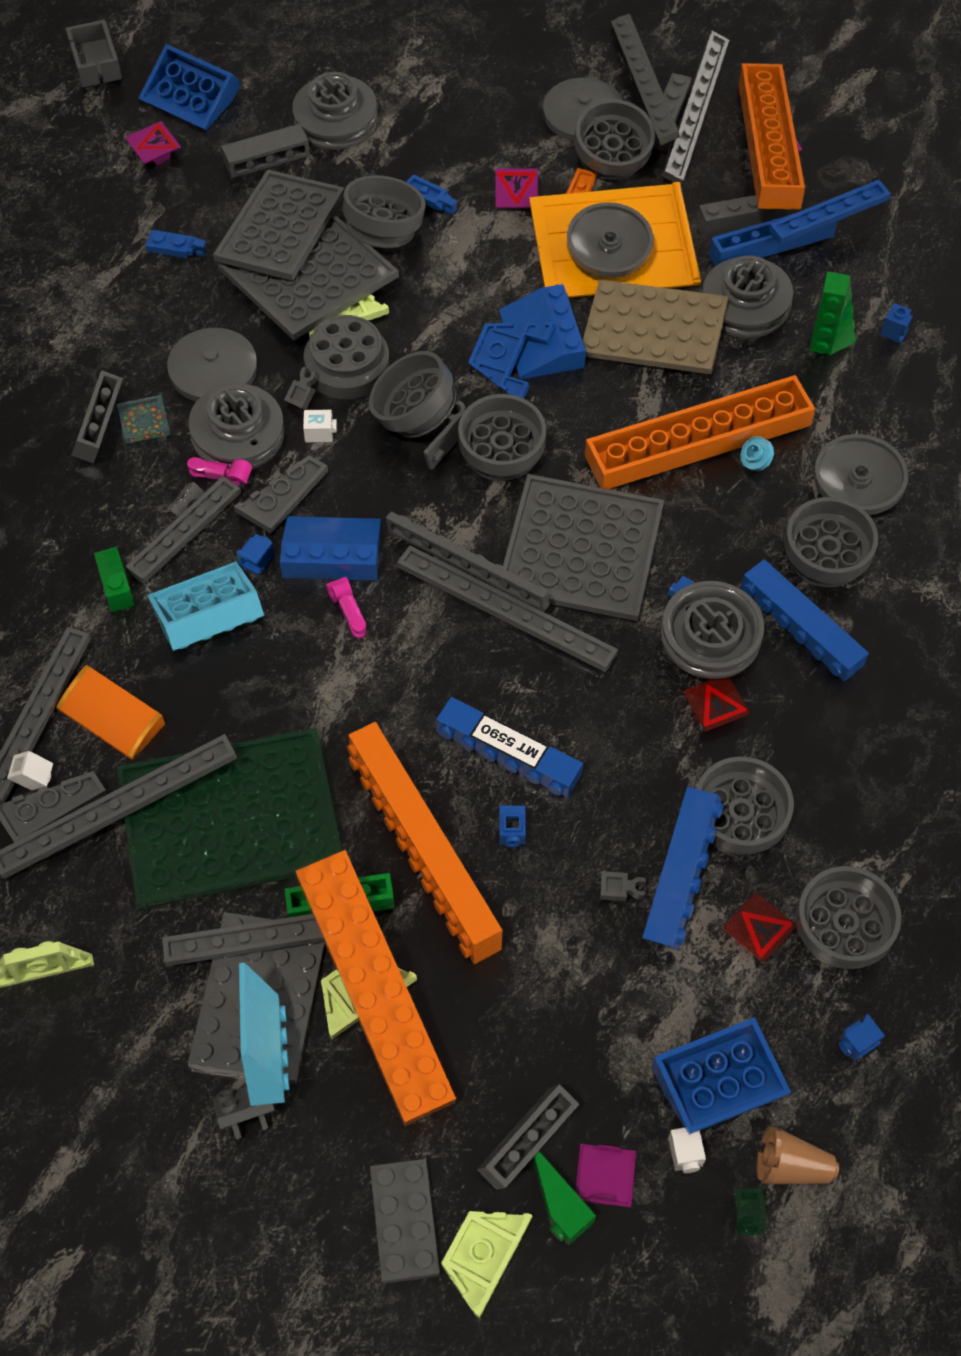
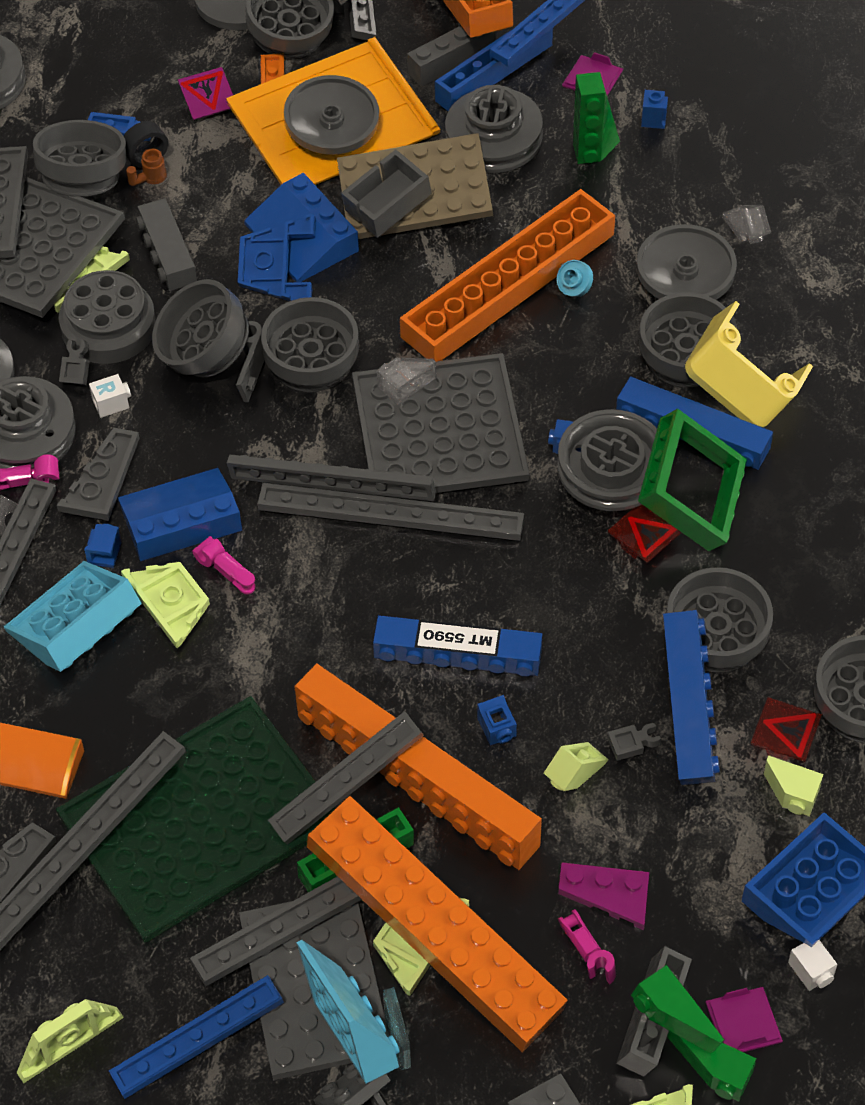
camera: 20 degrees left, 5 degrees down
(141, 1005) = (196, 1036): none -> blue tile
(290, 618) = (170, 598): none -> yellowish green wing
(303, 1065) = (397, 1027): none -> clear light blue tile
(355, 830) = (345, 777): none -> dark grey plate
(424, 310) = (166, 244): none -> dark grey brick
(442, 239) = (153, 169): none -> dark orange piece
(446, 227) = (138, 134): none -> black tyre
(499, 1057) = (588, 947): none -> dark pink piece
(538, 1142) = (672, 1007): none -> green slope
(540, 1011) = (609, 889): none -> magenta wing
(560, 890) = (574, 765): none -> yellowish green slope
(568, 493) = (405, 377): none -> clear slope
(619, 332) = (386, 202): none -> dark grey piece
(730, 672) = (654, 485): none -> green window
(743, 981) = (793, 785): none -> yellowish green slope
(853, 596) = (734, 379): none -> light yellow windscreen
(863, 274) = (596, 63): none -> magenta piece
(935, 453) = (748, 222): none -> clear slope

